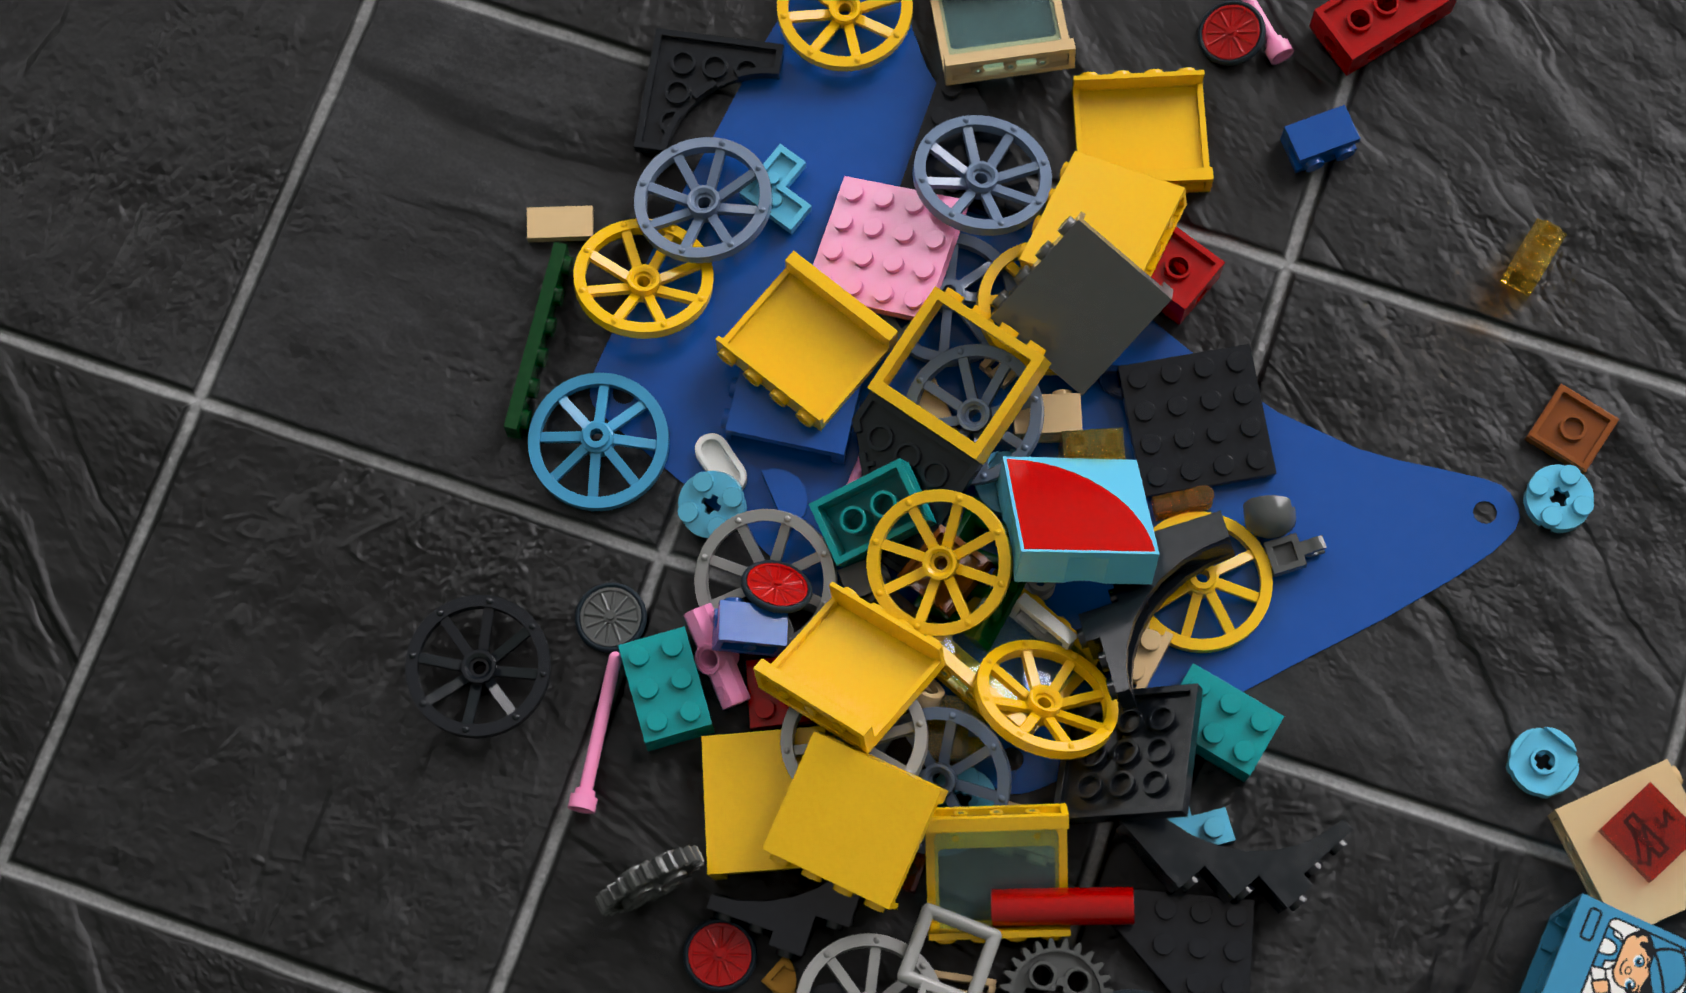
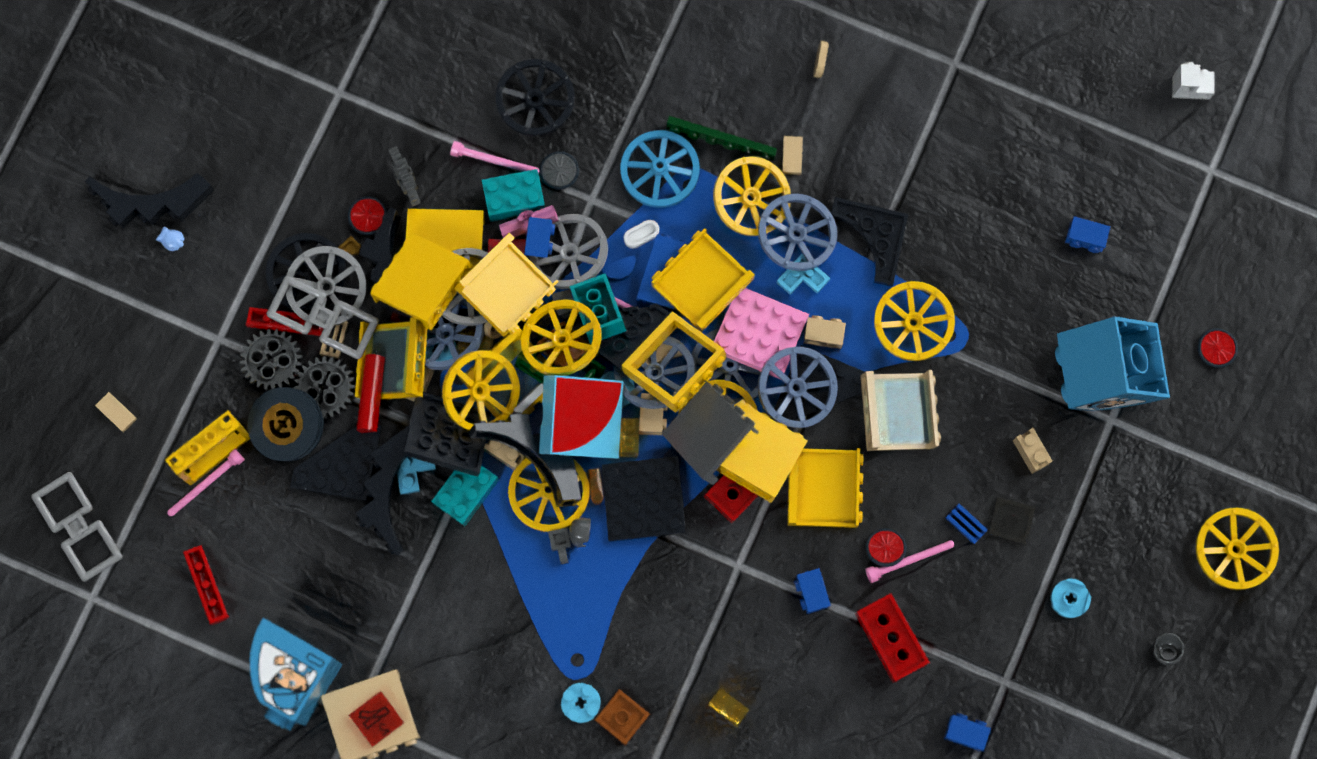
camera: 90 degrees right, 5 degrees up
(384, 186) = (820, 59): none -> tan tile
(705, 485) = (625, 220): medium azure plate -> none
(776, 586) = (560, 253): red wheel -> none
(876, 146) = (824, 332): none -> tan brick
(1523, 766) = (427, 659): medium azure plate -> none

